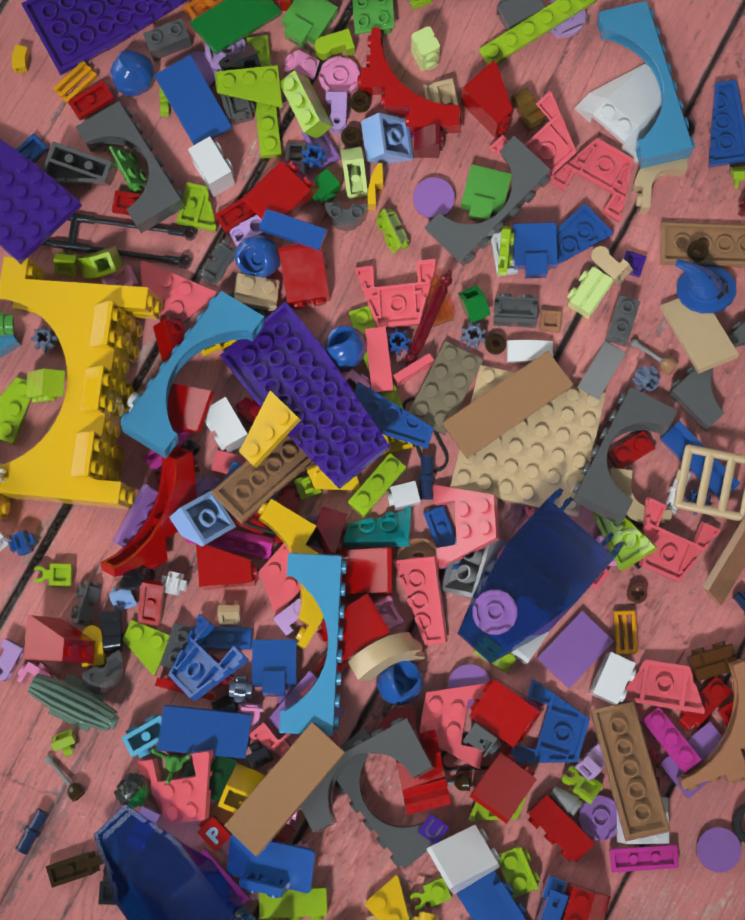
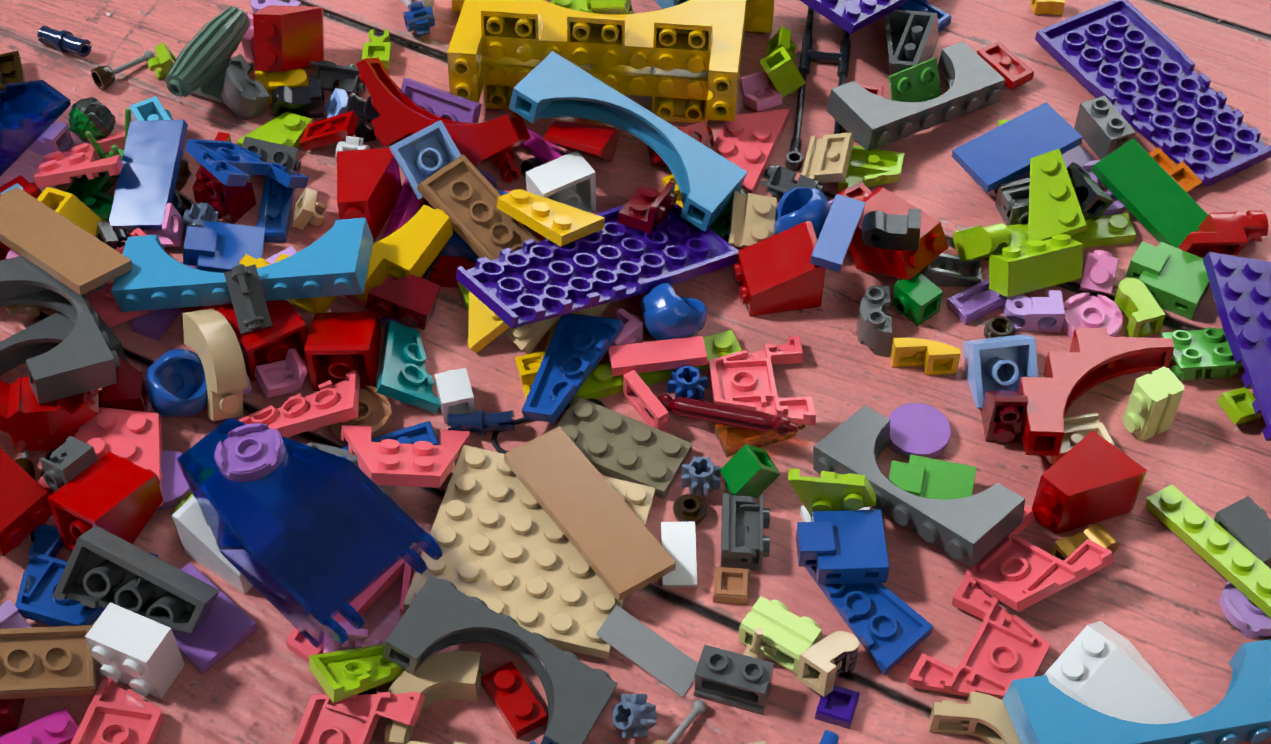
camera: 85 degrees right, 30 degrees down
(69, 77) = (1030, 52): light orange tile -> none
(132, 73) = (1049, 85): blue piece -> none
(194, 235) = (828, 157): none -> tan plate
(212, 167) = (927, 168): white brick -> none
(248, 362) = (648, 208): none -> dark red bracket
(287, 137) = (982, 241): none -> lime leg
(296, 191) = (892, 230): none -> black leg
(311, 160) = (959, 278): blue gear -> none
(354, 172) = (948, 324): yellowish green slope -> none
(354, 632) = (248, 298): none -> dark grey hinge
(360, 96) = (1055, 339): dark brown plate -> none
(377, 486) = (488, 370): lime brick -> none
(388, 222) = (848, 382): lime hinge -> none
(571, 681) = (118, 572): none -> dark grey wedge
(602, 310) = (754, 649): none -> tan hand
(624, 613) = (213, 694): light orange tile -> none
(631, 589) = (282, 711): copper bush -> none

